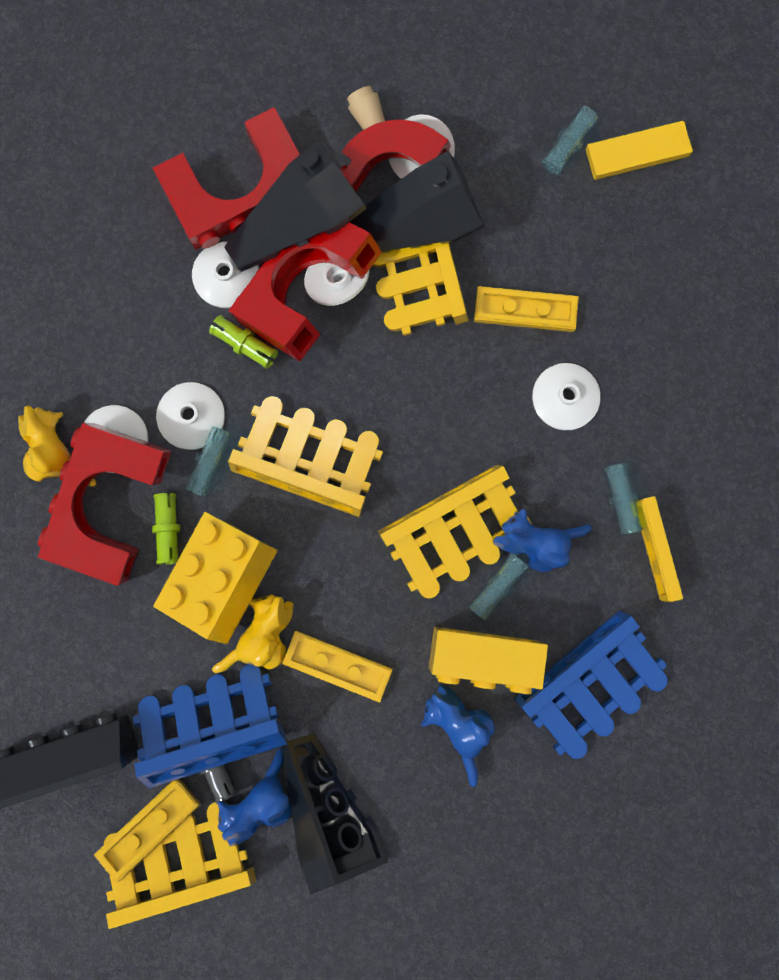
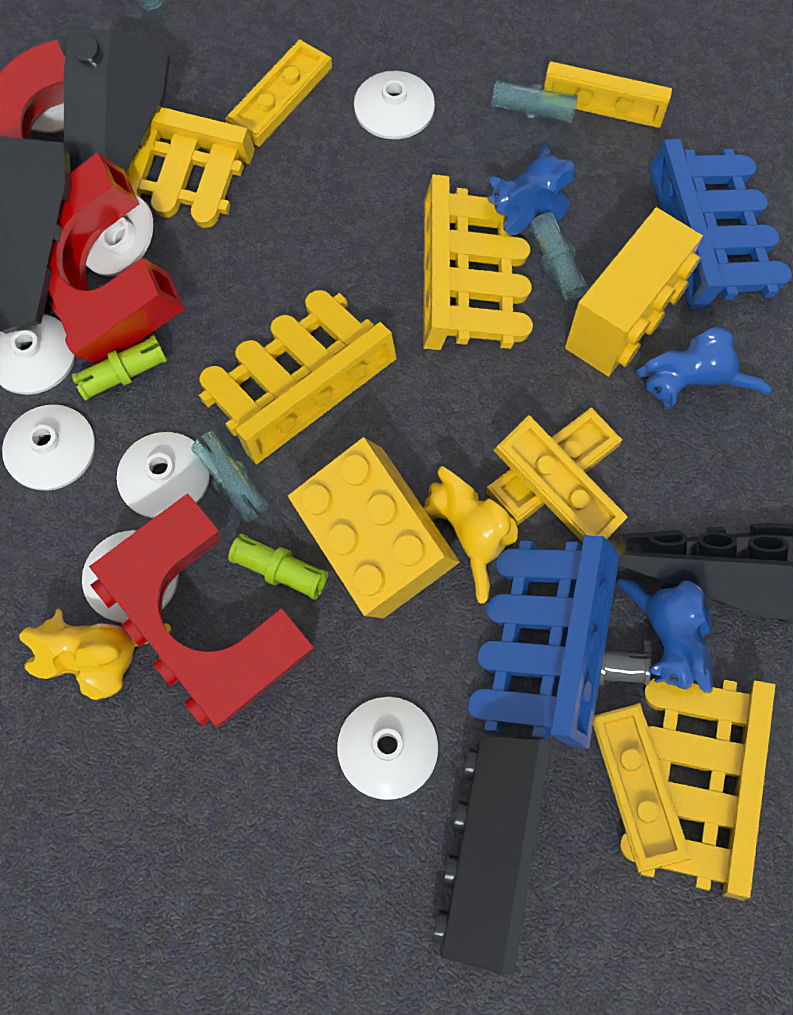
camera: 55 degrees left, 15 degrees down
(111, 658) = (387, 774): none -> white dish
(179, 342) = (59, 460): none -> white dish
(320, 678) = (559, 481): none -> yellow tile

